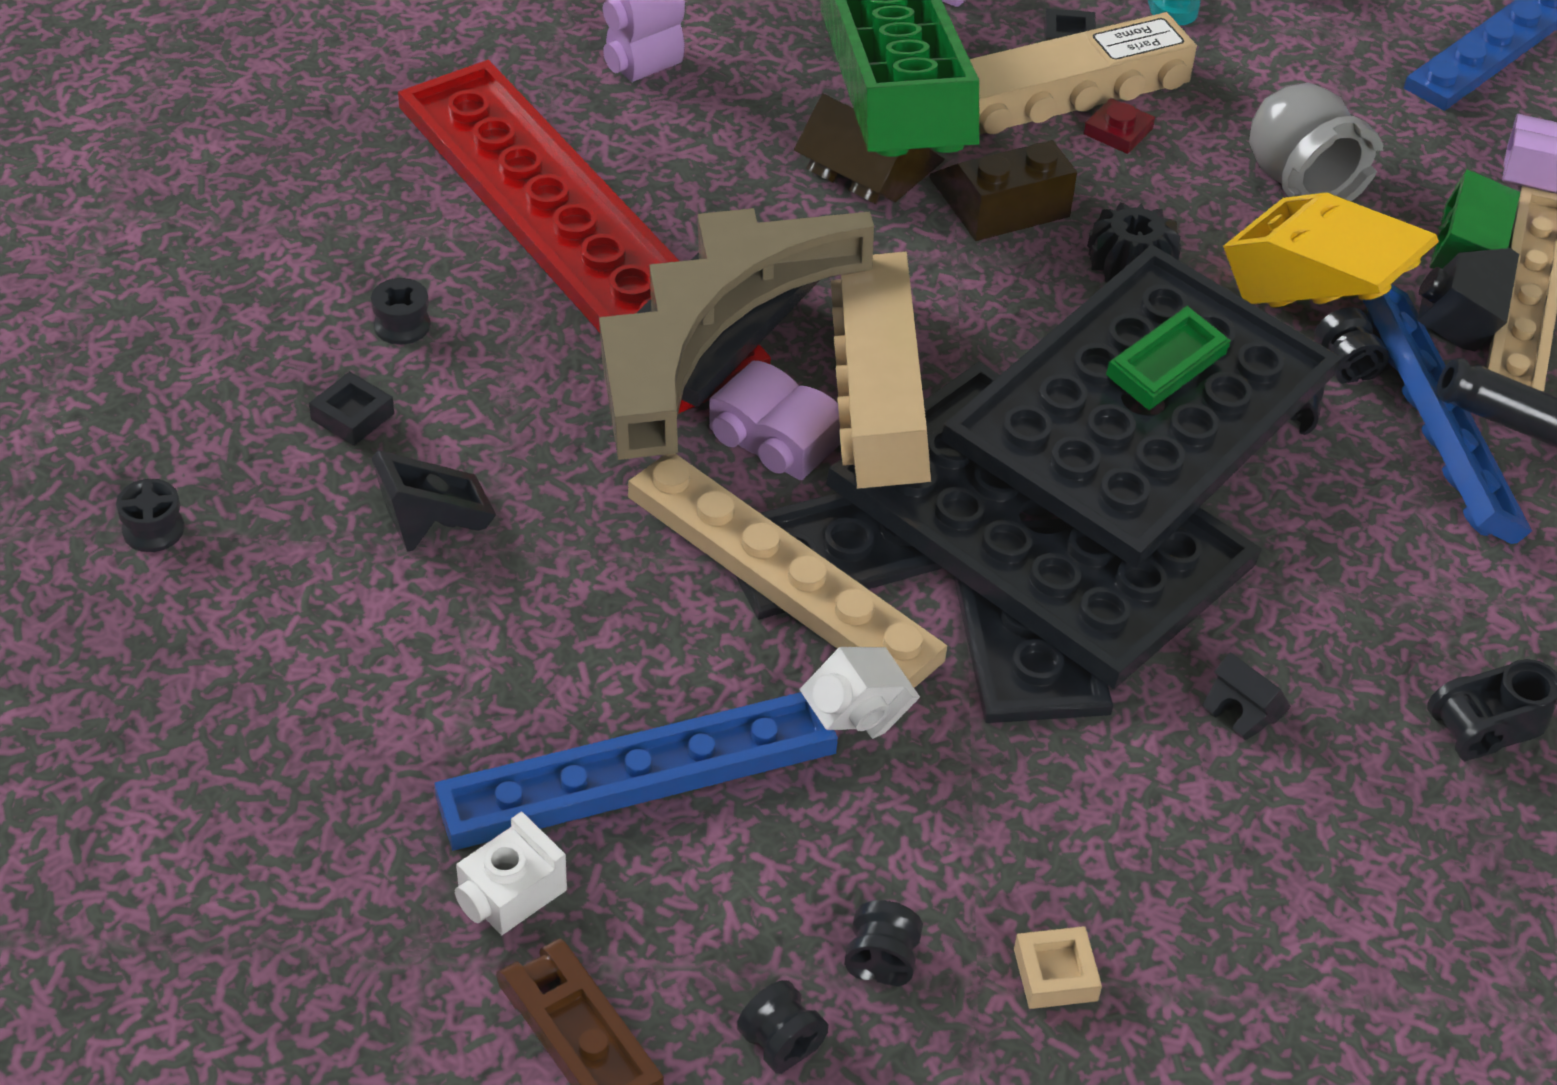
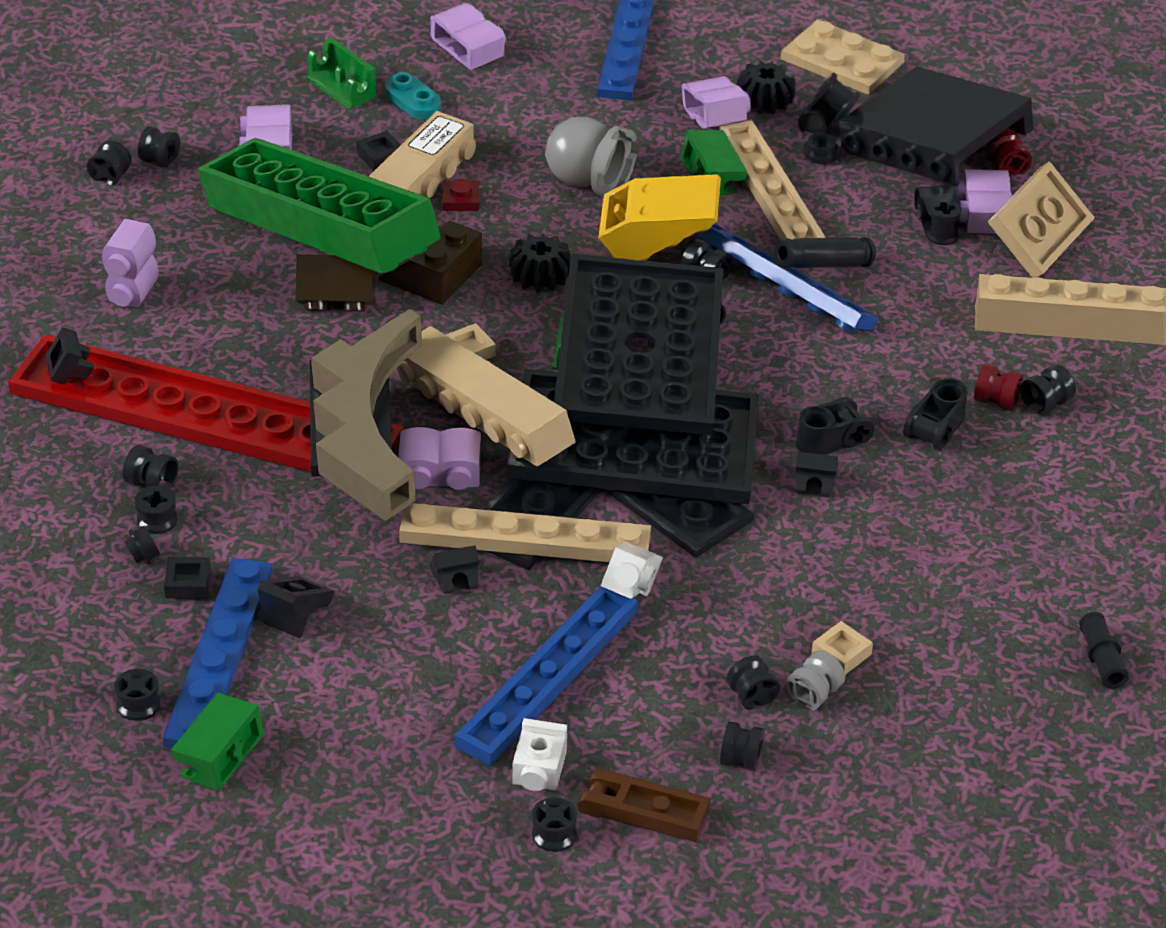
camera: 35 degrees left, 5 degrees down
(170, 624) = (218, 740): none -> green hinge
(280, 525) = (220, 644): none -> blue plate
(344, 340) = (141, 545): none -> black plate
(434, 965) = (554, 813): none -> black wheel
(440, 260) = (147, 468): none -> black wheel
(473, 93) = (68, 358): none -> black tile
(660, 559) = (455, 563): none -> black tile
(951, 303) = (475, 340): none -> tan plate
(973, 992) = (811, 682): none -> light grey wheel
(1168, 357) = (638, 312): green tile -> none
(1324, 643) = (829, 427): none -> black piece
(1469, 296) = (748, 204): black slope -> none

